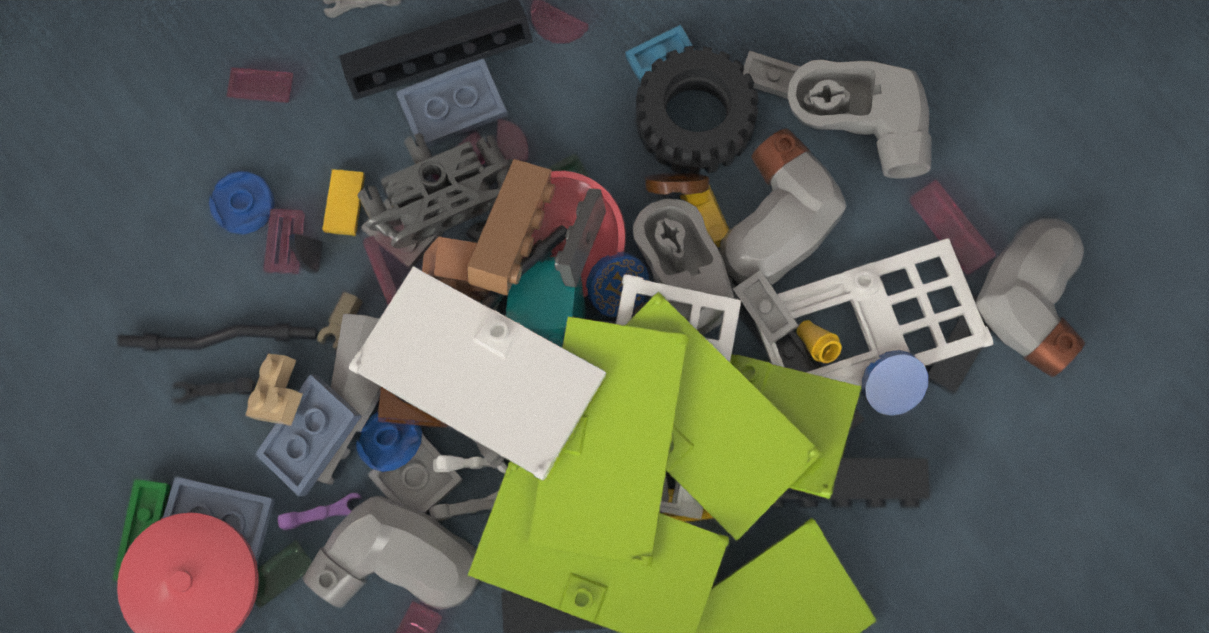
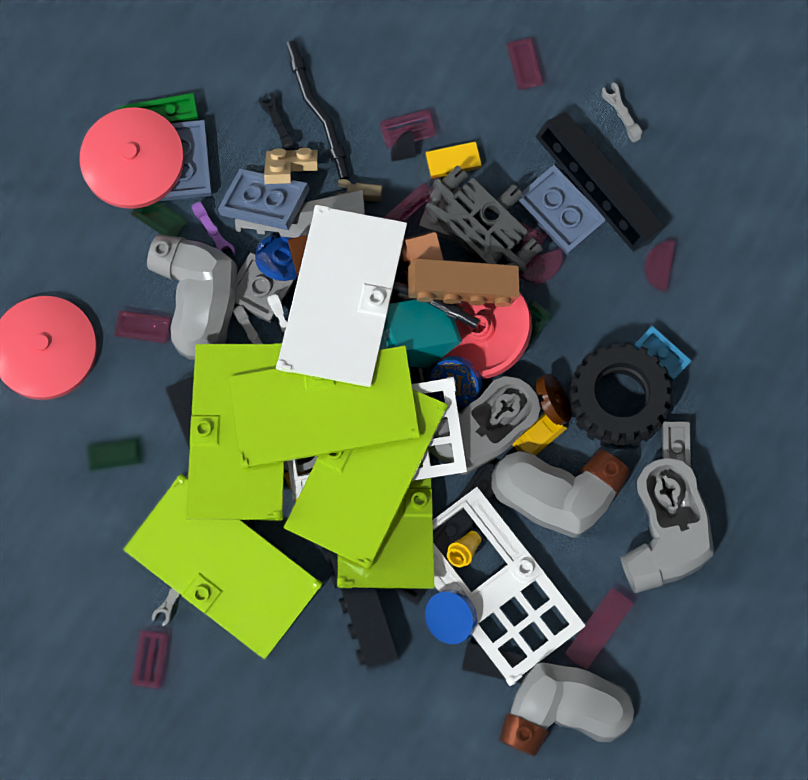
camera: 70 degrees right, 0 degrees up
(241, 202) = (427, 86): blue tile -> none
(581, 237) = (475, 337): dark grey tile -> none
(765, 307) = (474, 497): light grey plate -> none

